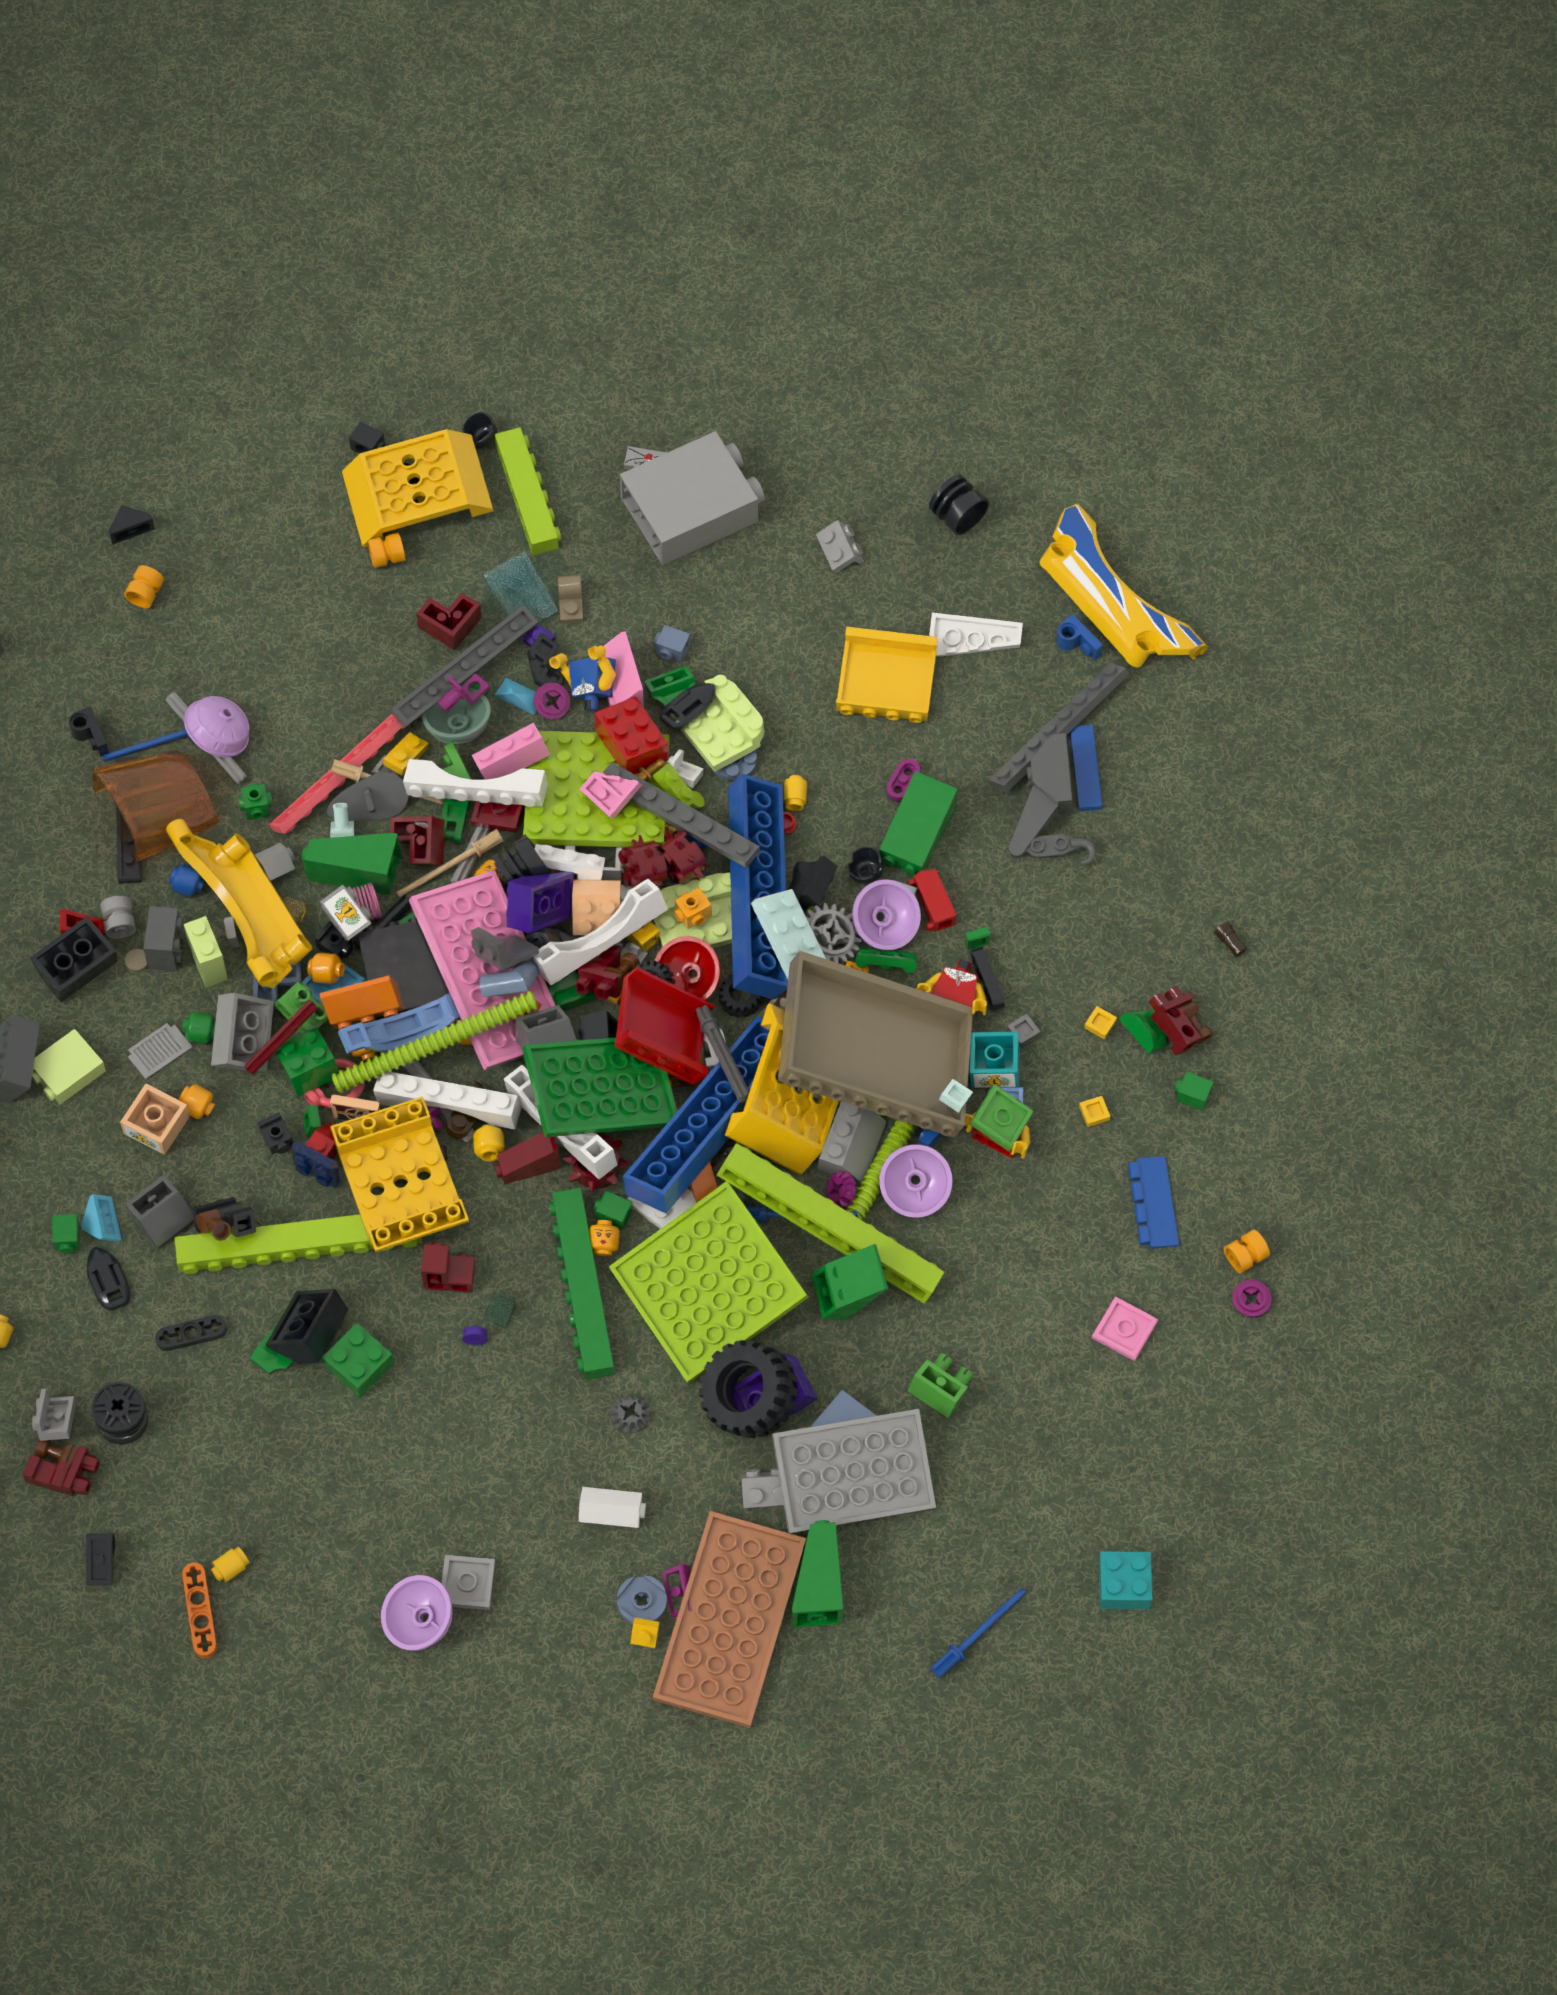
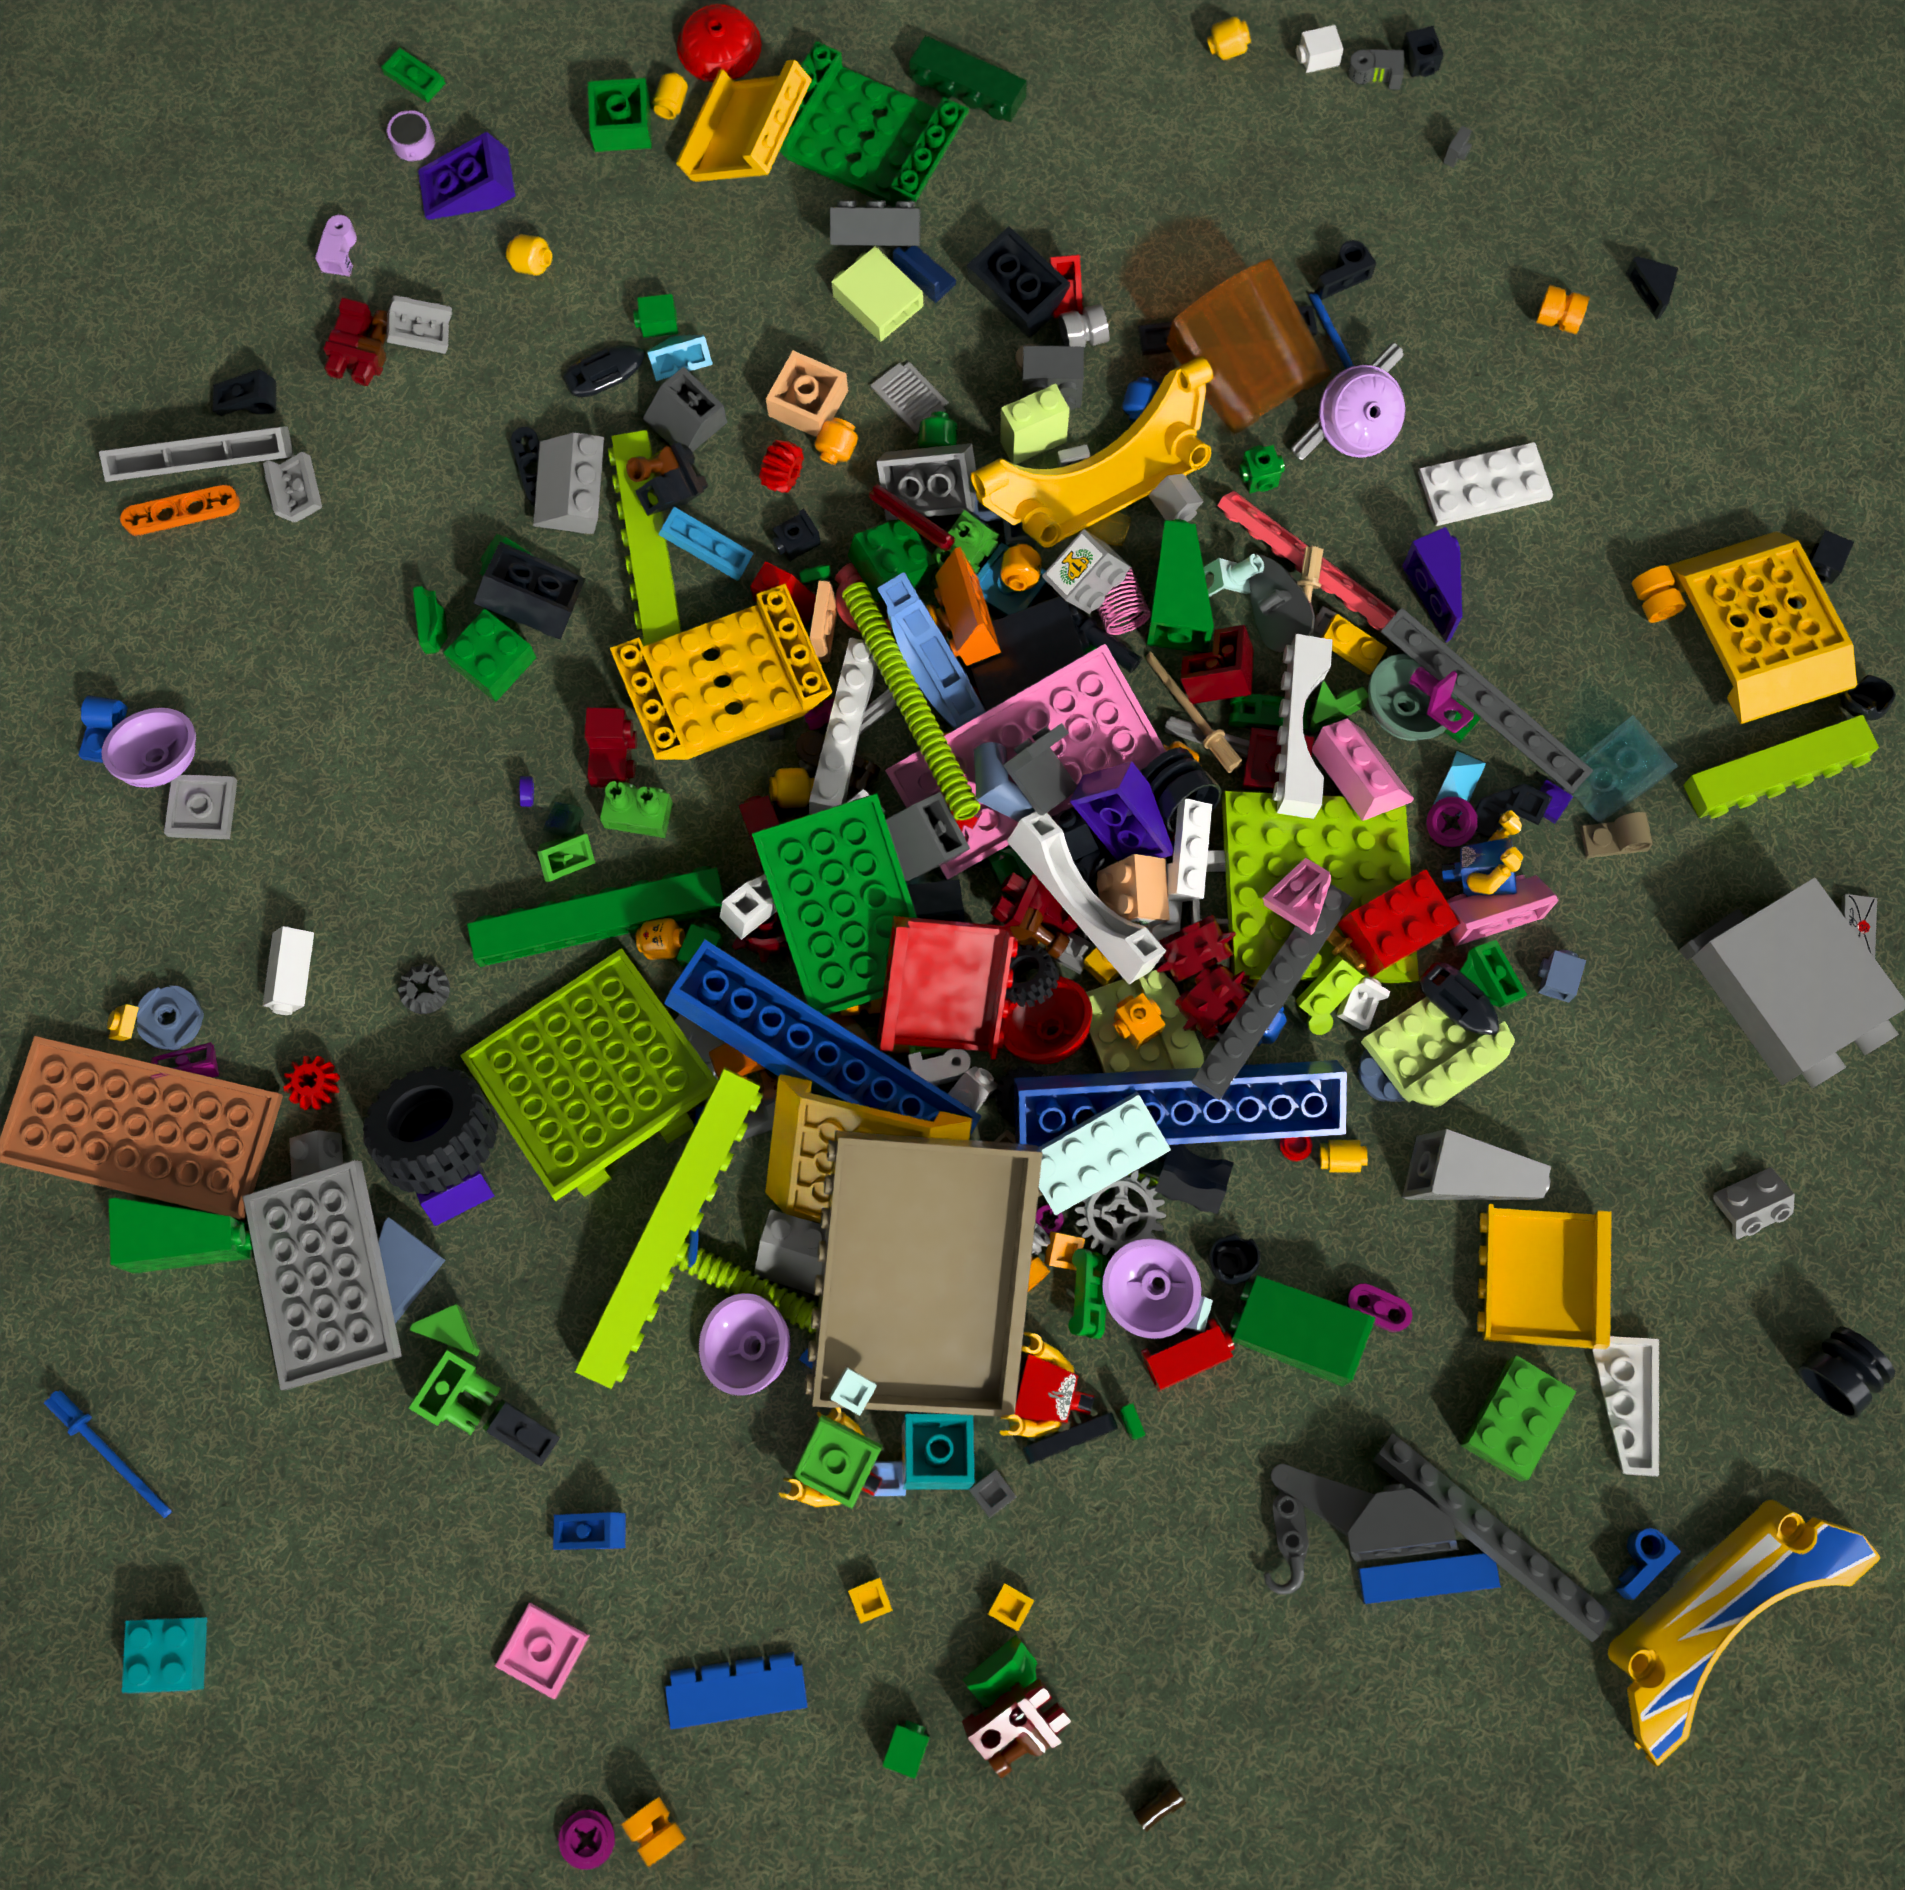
camera: 90 degrees right, 10 degrees up
(53, 1030) = (924, 272): none -> dark blue panel
(116, 1425) = (419, 394): black wheel -> none
(154, 1590) = (196, 453): none -> light grey brick
(190, 1515) = (293, 487): none -> light grey bracket
(213, 1298) = (569, 483): none -> light grey slope
(216, 1139) = (781, 466): none -> red gear
(229, 1565) = (231, 535): yellow brick -> none
(279, 1196) = (705, 543): none -> dark azure plate
(281, 655) = (1485, 484): none -> white plate
(316, 1164) = (738, 584): clear blue plate -> none
(320, 1405) = (430, 620): none -> green slope
(365, 688) = (1436, 575): none -> dark purple slope
(389, 1663) = (100, 717): none -> blue plate
(450, 624) = (1555, 685): dark red brick -> none
(497, 1254) = (636, 810): none -> bright green brick
(533, 1307) = (565, 856): none -> bright green slope
(646, 544) = (1719, 928): none -> dark grey plate
(701, 1499) = (323, 1076): none -> red gear
(711, 1027) = (955, 1053): dark grey axle -> none
(732, 1026) = (974, 1087): none -> white bracket
(810, 715) = (1464, 1168): none -> light grey slope
(847, 1189) = (723, 1246): magenta gear -> none
(849, 1283) = (584, 1257): green slope -> none
(895, 1387) = (449, 1328): none -> bright green slope
(970, 1339) = (521, 1432): none -> black plate
(982, 701) = (1518, 1418): none -> bright green brick
(1043, 1292) = (589, 1531): none -> blue plate

